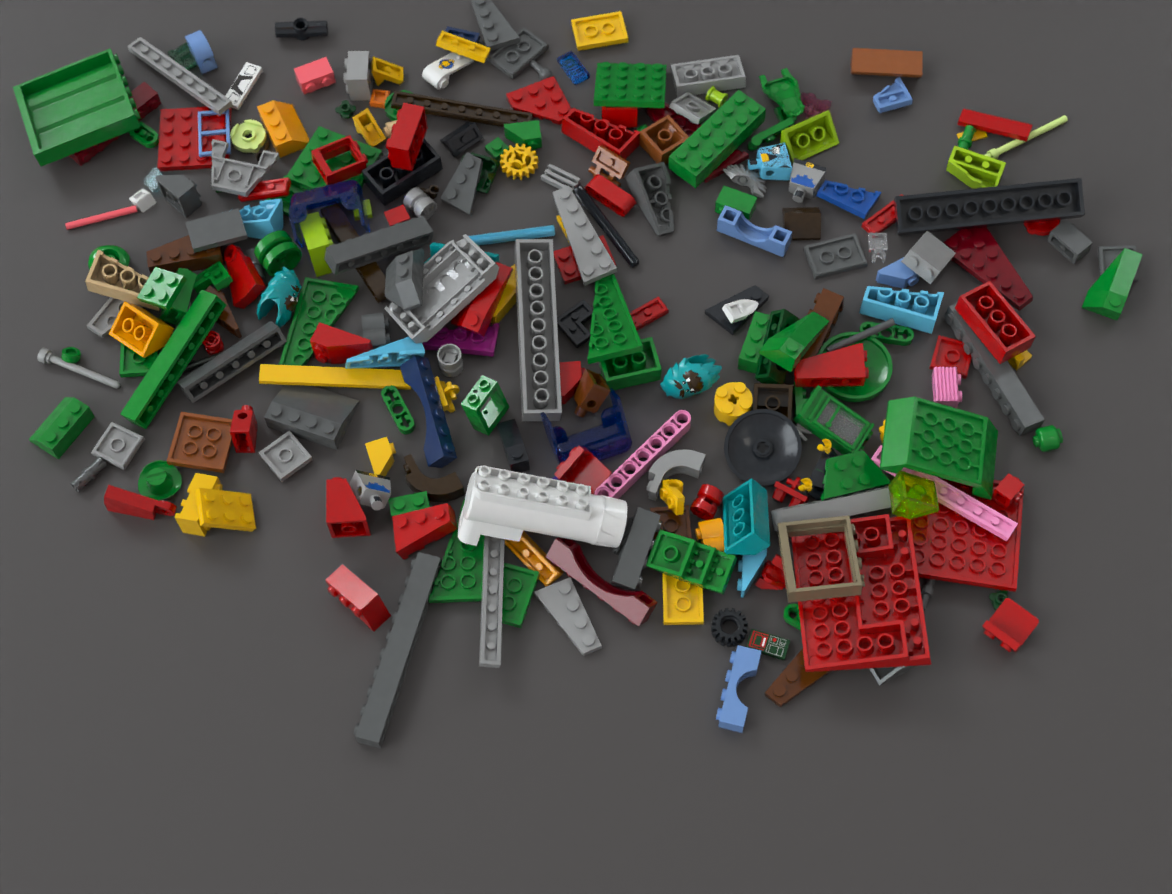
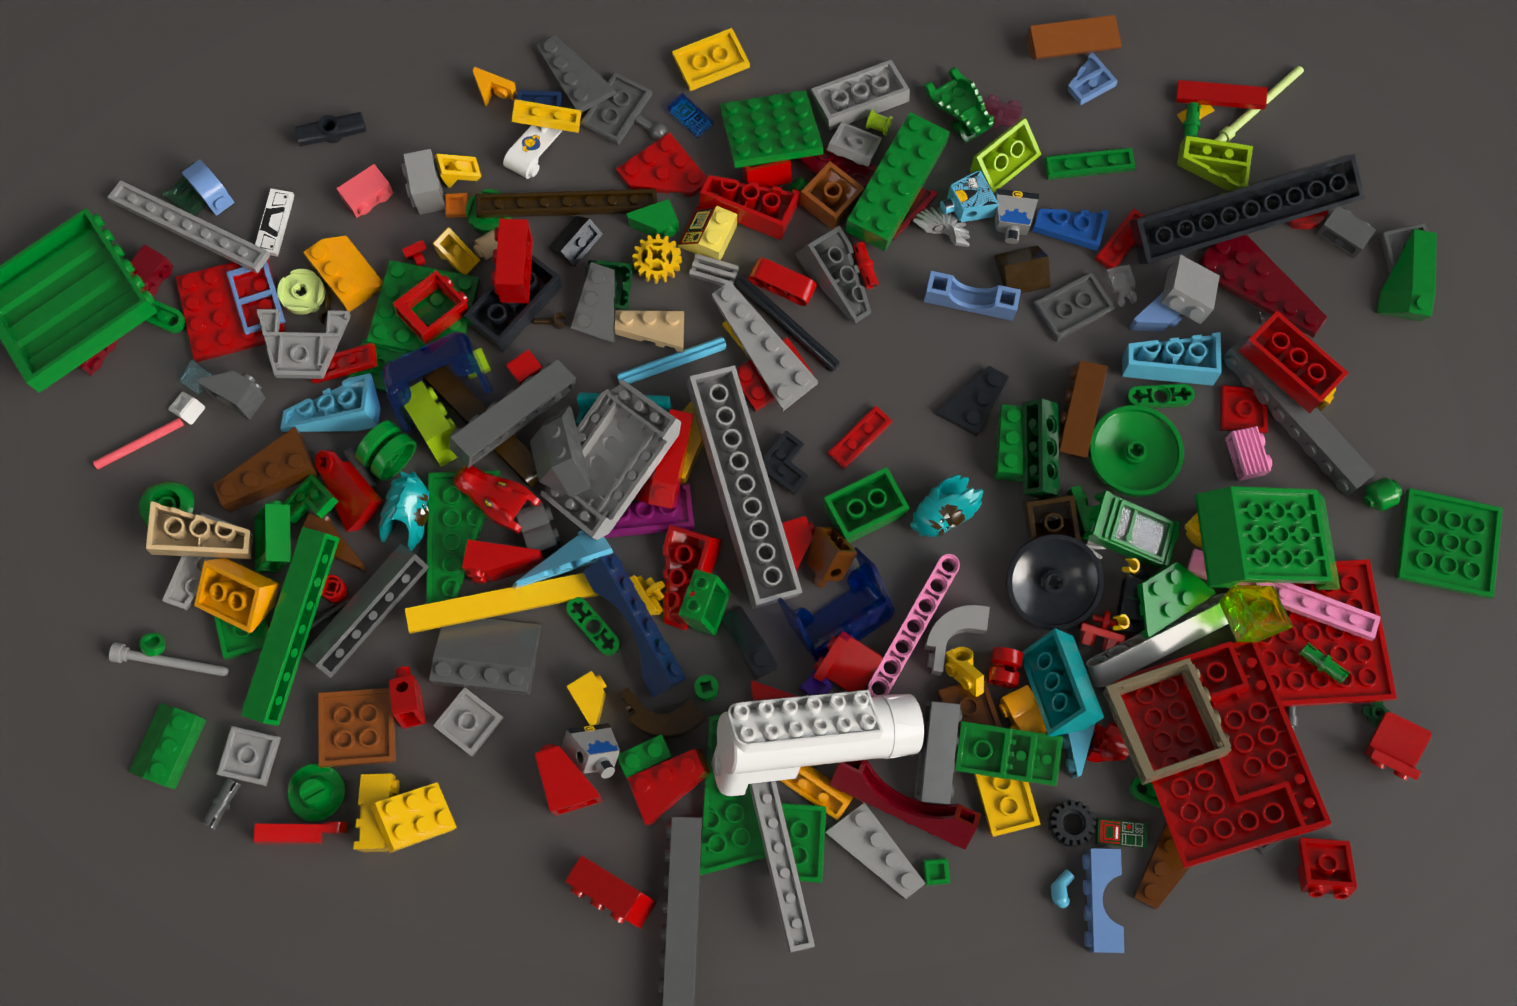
camera: 20 degrees left, 10 degrees up
(161, 288) = (250, 537): plate -> none
(216, 230) = (297, 437): dark grey tile -> none
(339, 123) = (415, 251): none -> red tile
(345, 113) = (417, 235): dark green plate -> none
(349, 301) = (495, 496): none -> red animal
(419, 203) = (546, 341): light grey wheel -> none
(430, 19) = (491, 83): none -> light orange slope
(450, 360) = (642, 548): light grey wheel -> none
(466, 471) = (708, 694): none -> green wheel
(479, 364) = (683, 554): none -> red wedge
(496, 148) = (623, 245): green plate -> none
(506, 209) = (660, 327): none -> tan wing
(565, 150) = (709, 231): none -> light yellow slope
(610, 162) = (773, 239): plate -> none
(611, 324) = (835, 464): green wing -> none
(613, 640) = (936, 871): none -> green tile
(677, 195) = (865, 265): none -> red pin
(706, 674) = (1059, 889): none -> medium azure arm
(732, 401) = (1007, 518): yellow brick -> none
(736, 199) = (938, 259): green brick -> none
(739, 309) = (982, 405): white plate -> none
(769, 134) = (956, 161): green plate -> none
(794, 341) = (1065, 440): green wedge -> none
(833, 368) = (1118, 462): red slope -> none
(862, 335) = (1135, 411): dark grey bar -> none
(876, 156) = (1089, 163): none -> green tile
(926, 704) = (1326, 868): none -> red plate
(962, 548) = (1324, 663): none -> green pin
(1008, 491) = (1358, 575): red brick -> none
(1094, 487) = (1449, 543): none -> green plate

